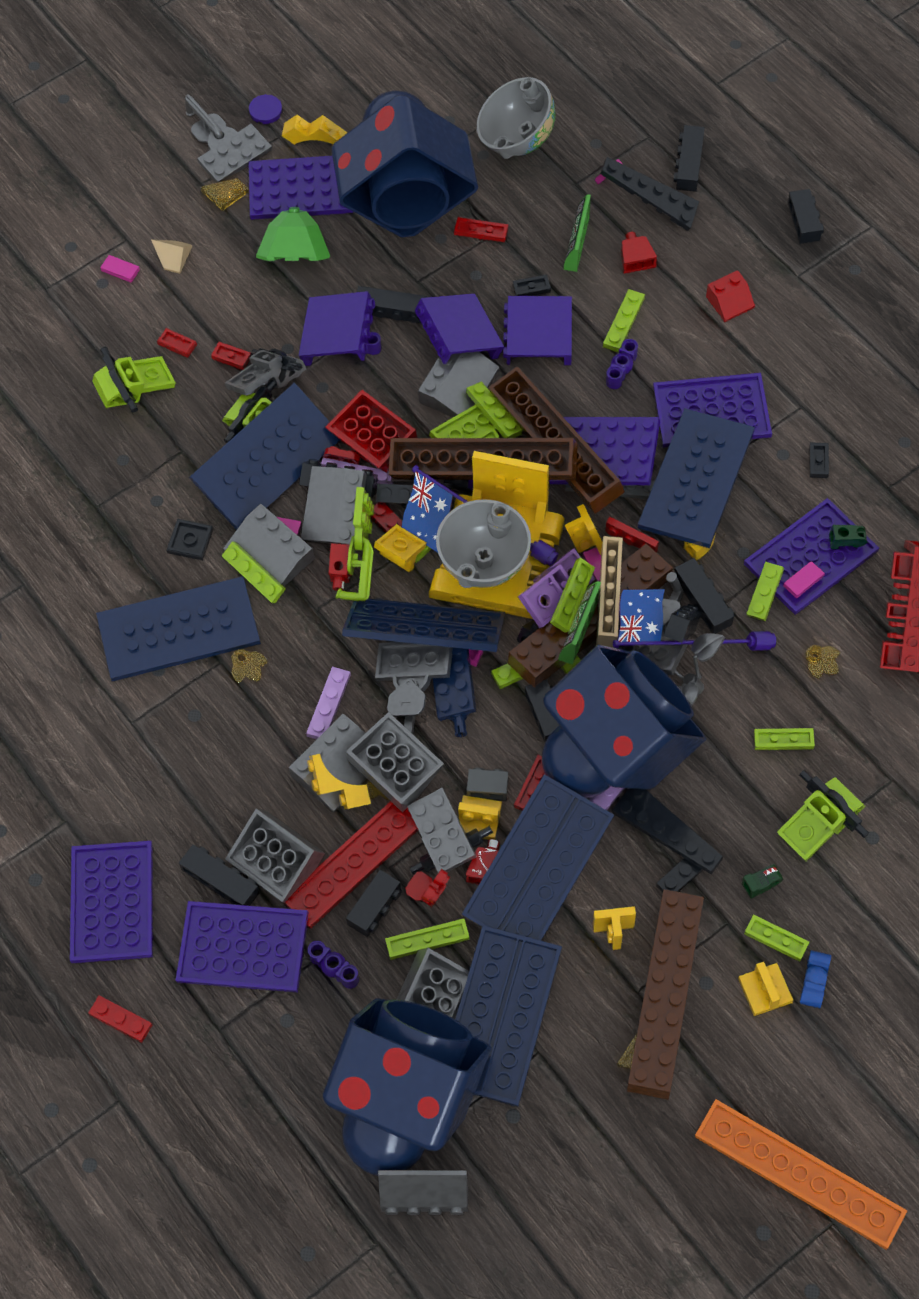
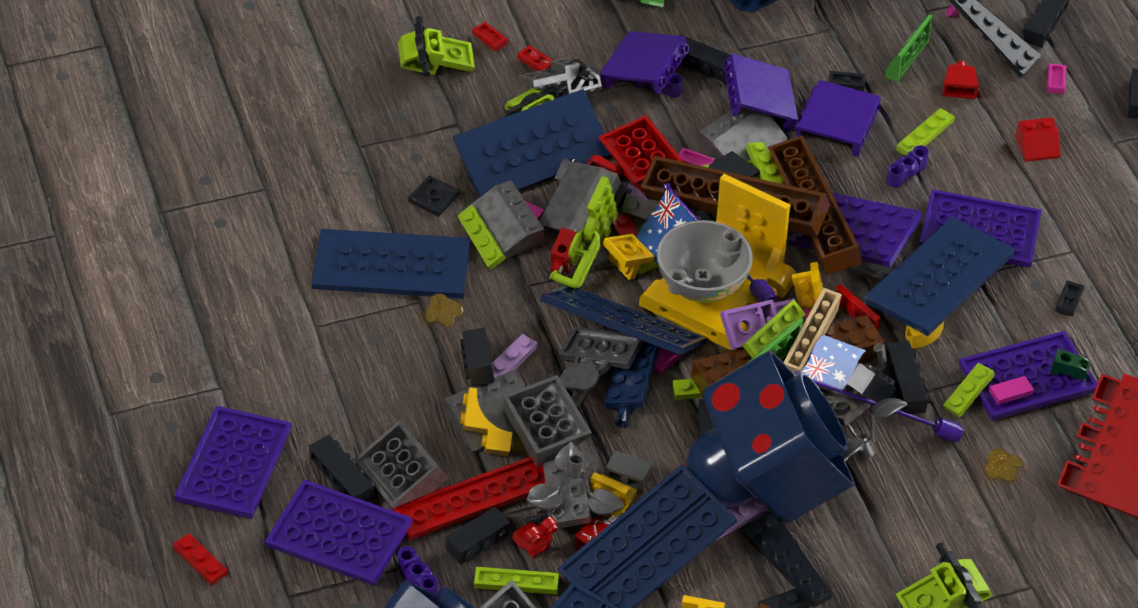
camera: 15 degrees right, 15 degrees down
(303, 711) = (477, 357): none -> black brick
(423, 419) = (695, 158): none -> dark pink tile
(429, 850) = (573, 464): none -> flat silver plant
(465, 422) = (735, 164): none -> black tile
(481, 229) = (817, 22): red plate -> none
(721, 222) = (1056, 78): none -> dark pink tile
(784, 739) = (936, 519): lime plate -> none

